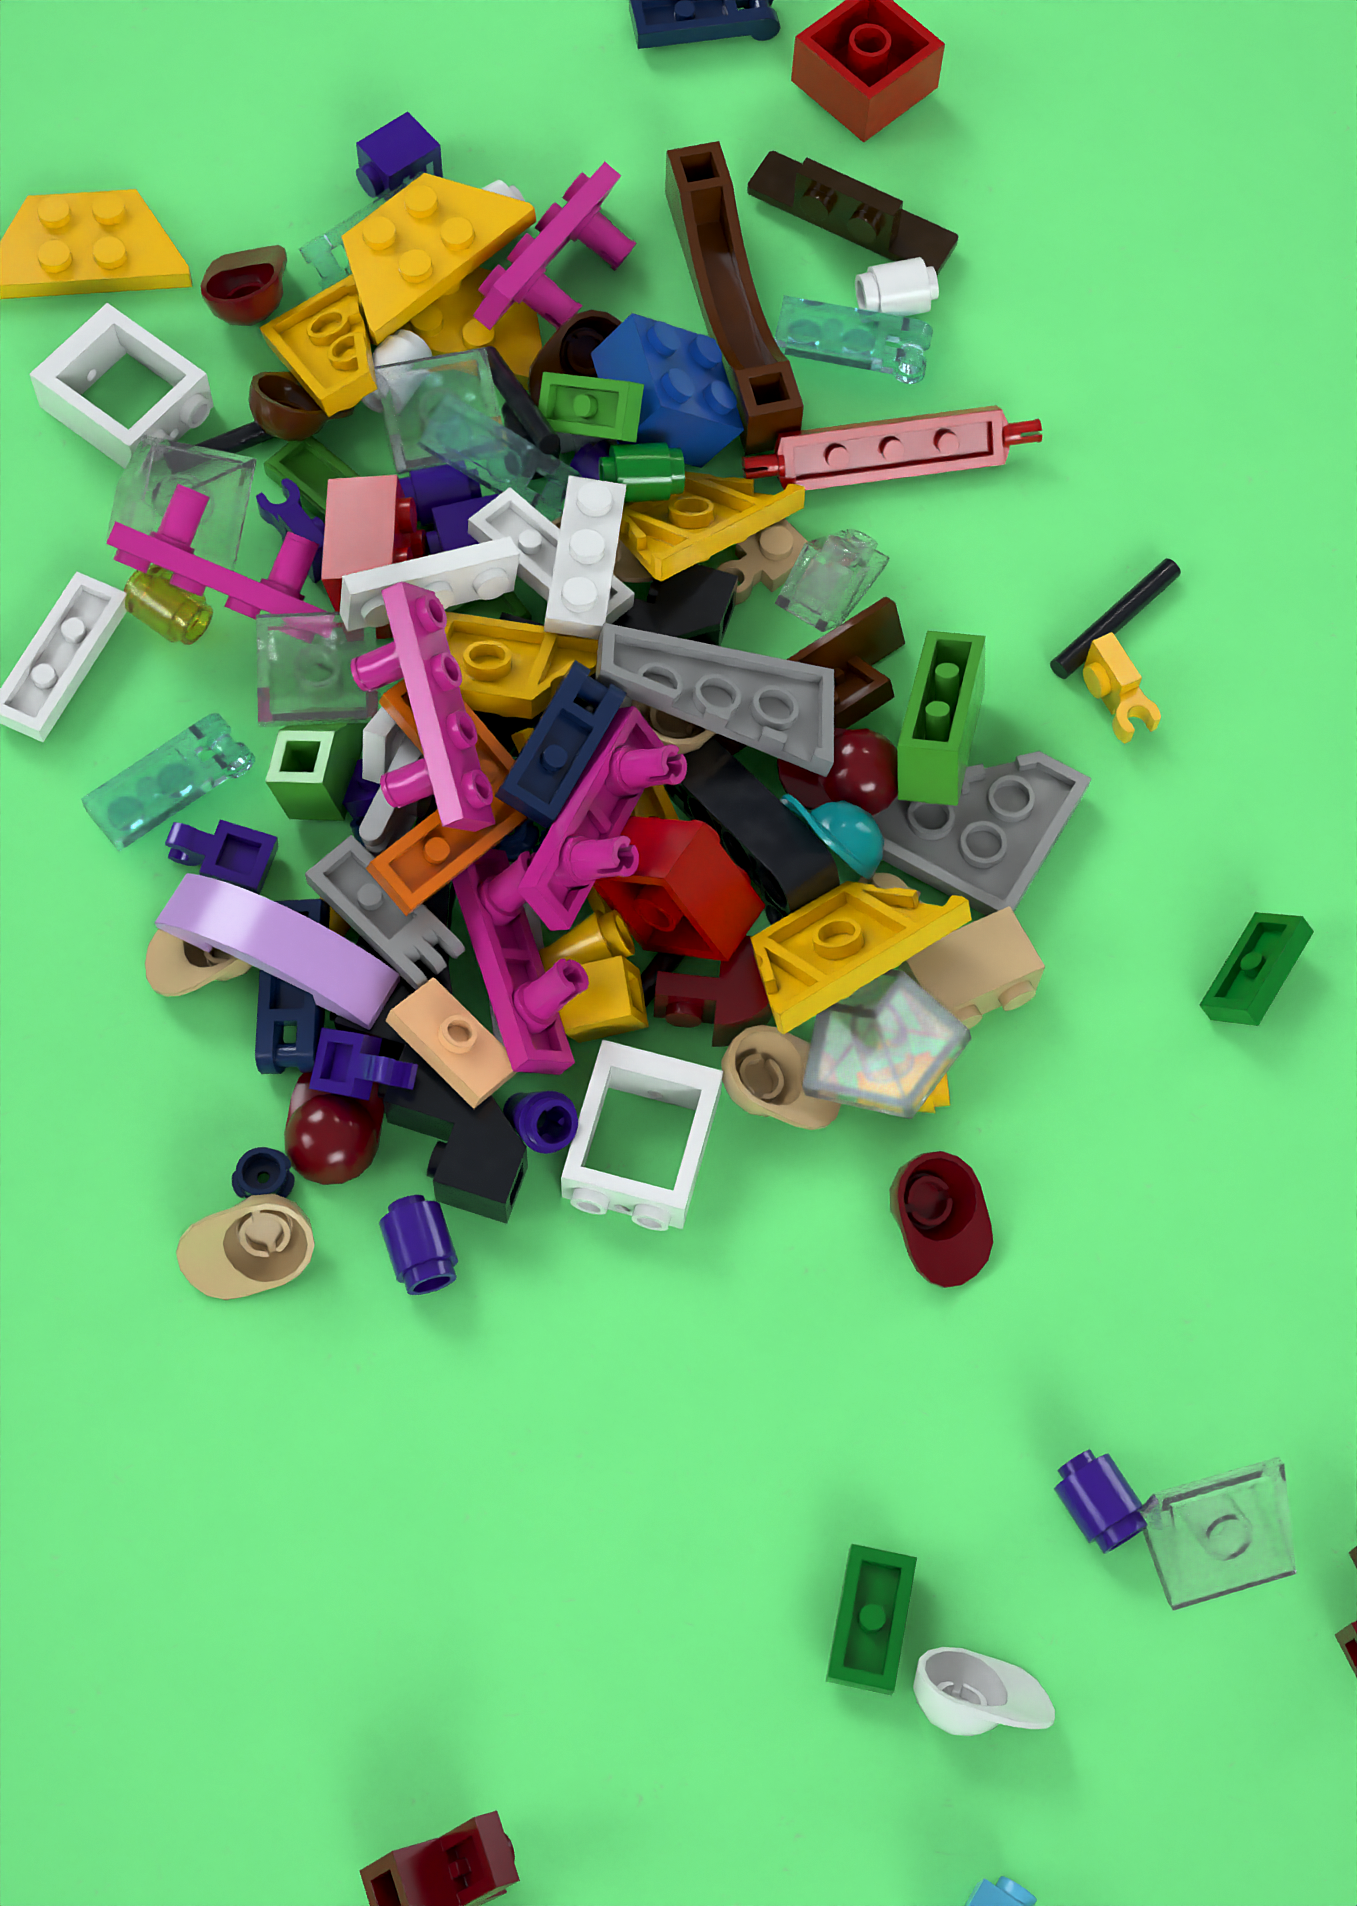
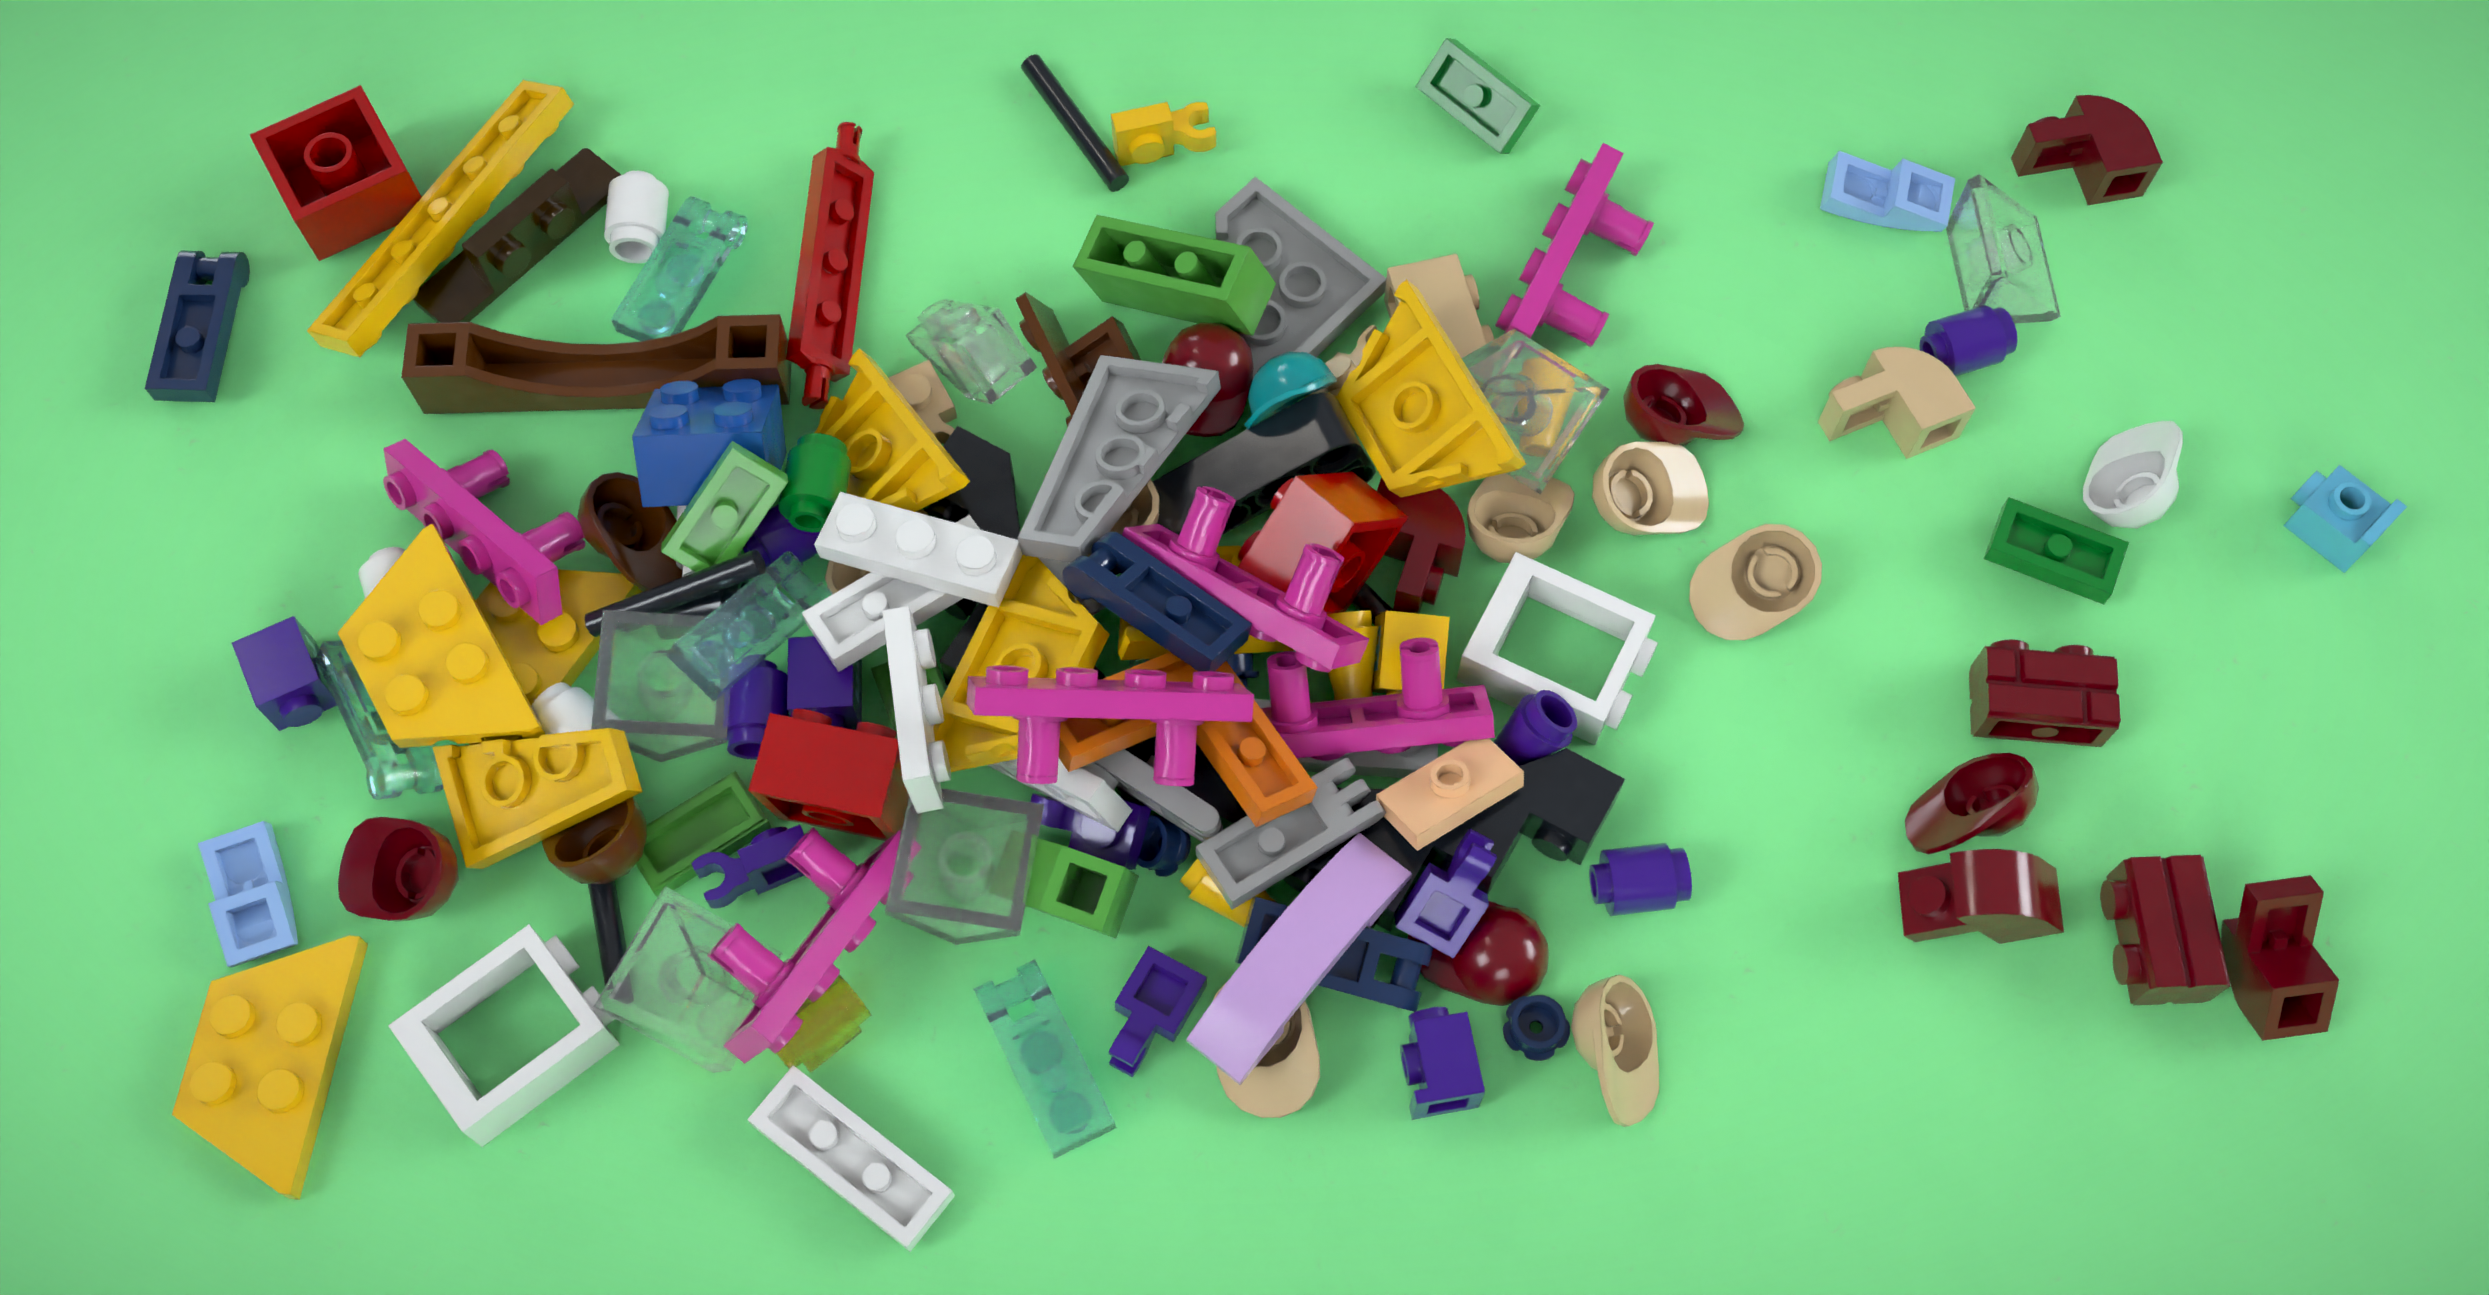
camera: 75 degrees left, 0 degrees up
(211, 1096) = (1442, 1063): none -> dark purple brick
(212, 200) = (250, 893): none -> light blue slope
(455, 1571) = (1982, 890): none -> dark red brick
(458, 1758) = (2165, 930): none -> dark red brick
(561, 1555) = (1974, 799): none -> dark red cap
(696, 1615) = (2044, 694): none -> dark red brick
(757, 1313) = (1755, 582): none -> tan cap
(837, 1201) = (1651, 489): none -> tan cap
(852, 148) = (440, 219): none -> yellow plate
(1020, 1437) = (1908, 392): none -> tan brick
(1118, 1076) = (1587, 212): none -> dark pink plate
(1272, 1402) = (1895, 198): none -> light blue slope

